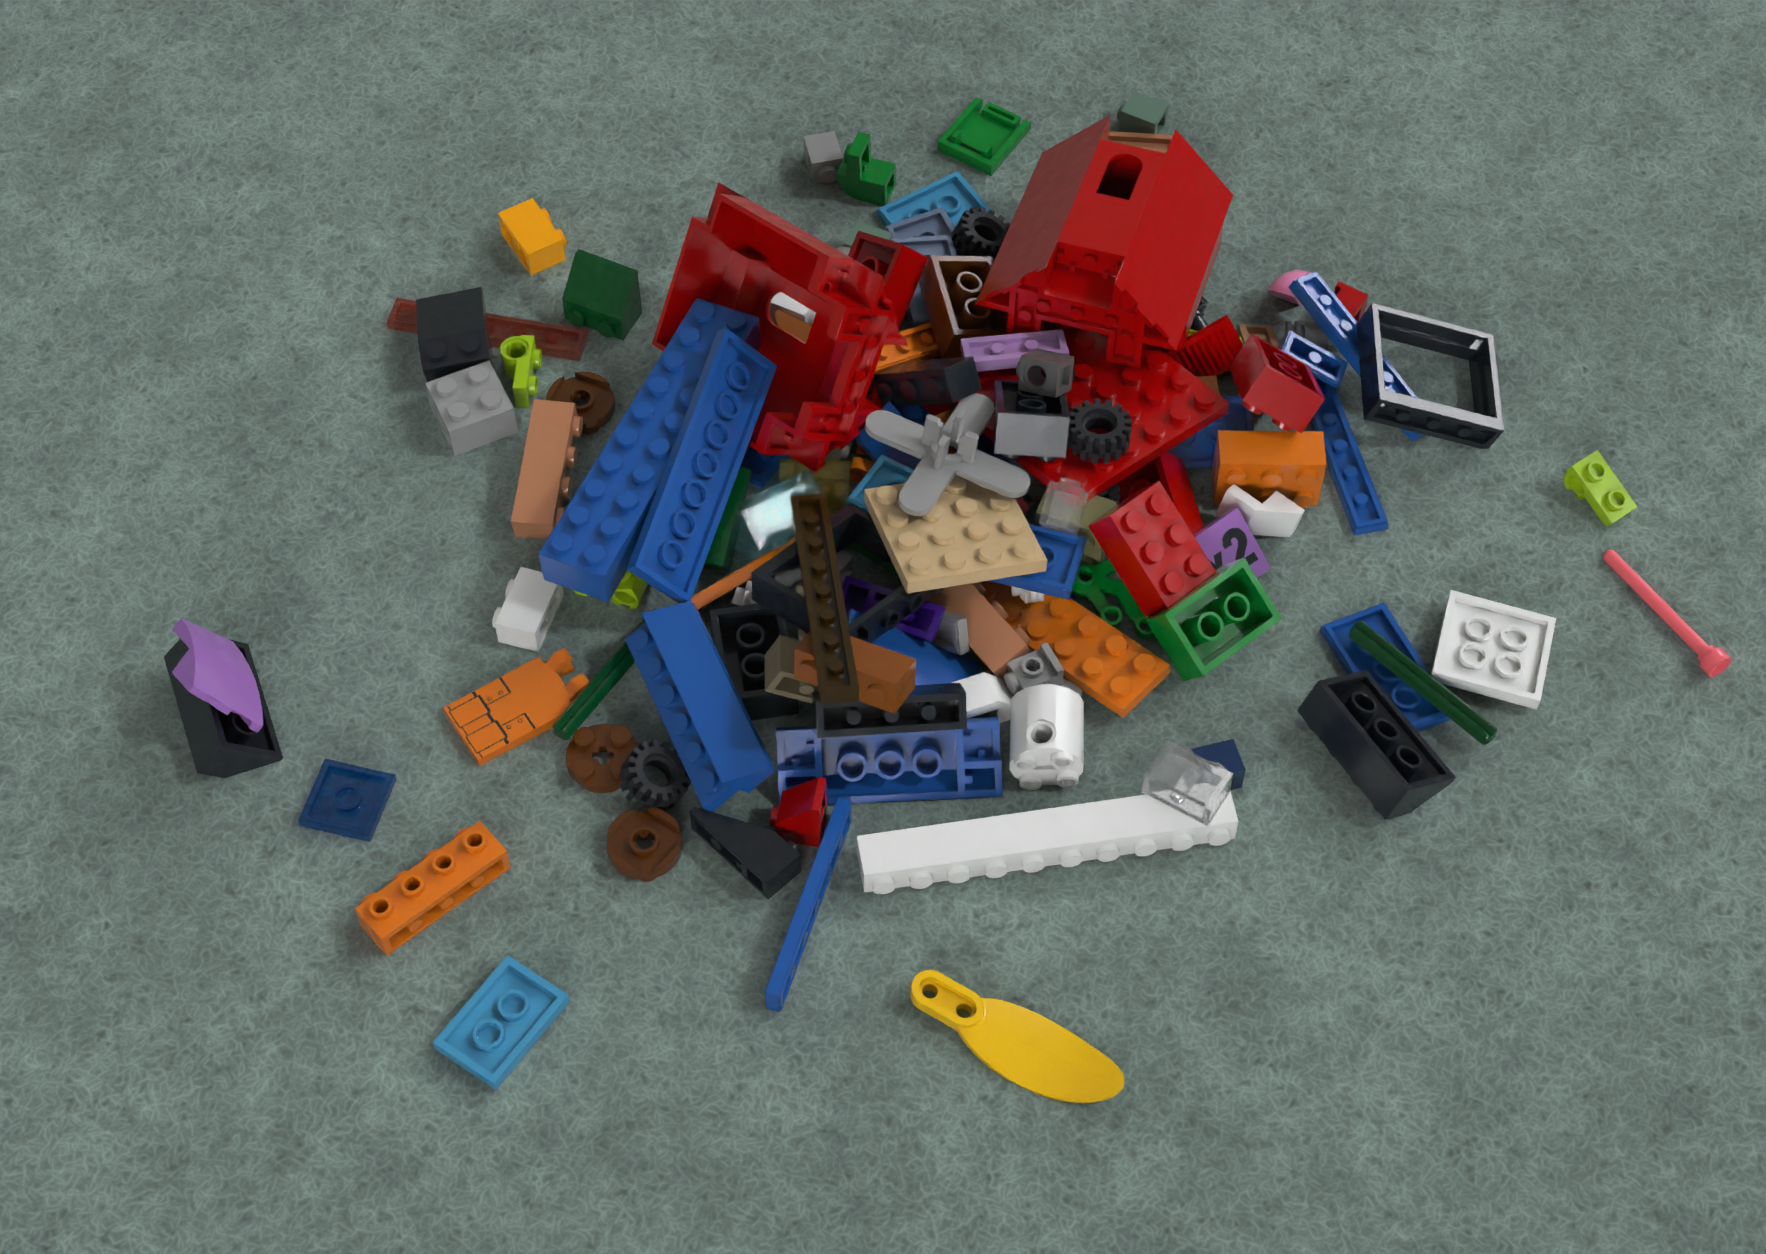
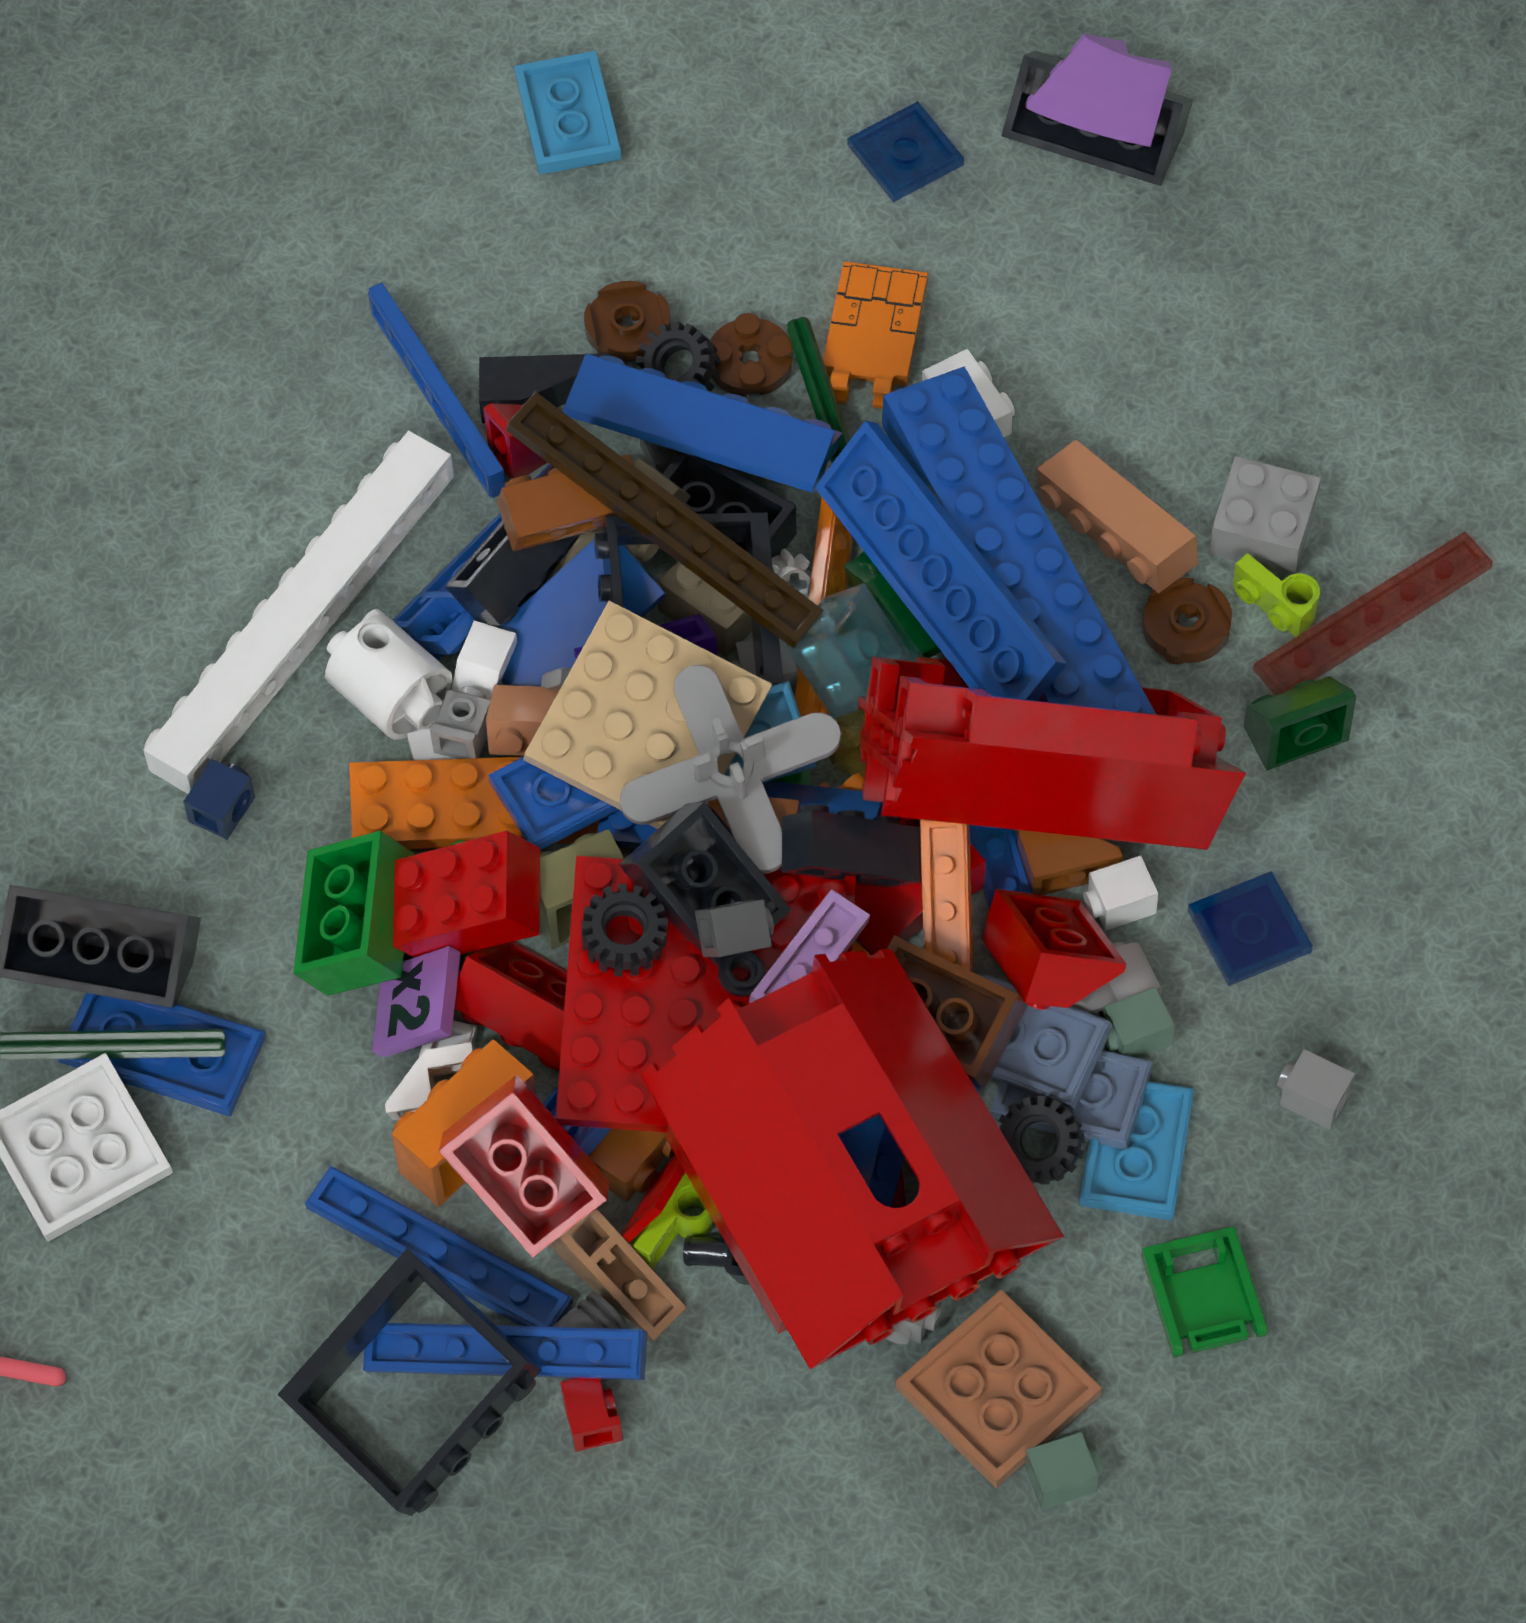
camera: 135 degrees right, 5 degrees up
(432, 887) = (743, 144): orange brick -> none
(453, 332) = (1376, 558): black slope -> none
(532, 236) = (1462, 730): light orange brick -> none
(864, 176) = (1243, 1102): green brick -> none
(1020, 1043) = (153, 447): yellow plant -> none
(1064, 506) = (573, 830): clear brick -> none
(1187, 782) = (212, 723): clear brick -> none
(1280, 285) = (670, 1378): bright pink brick -> none
(1321, 362) = (546, 1285): blue slope -> none
(1600, 487) = (129, 1436): lime plate -> none

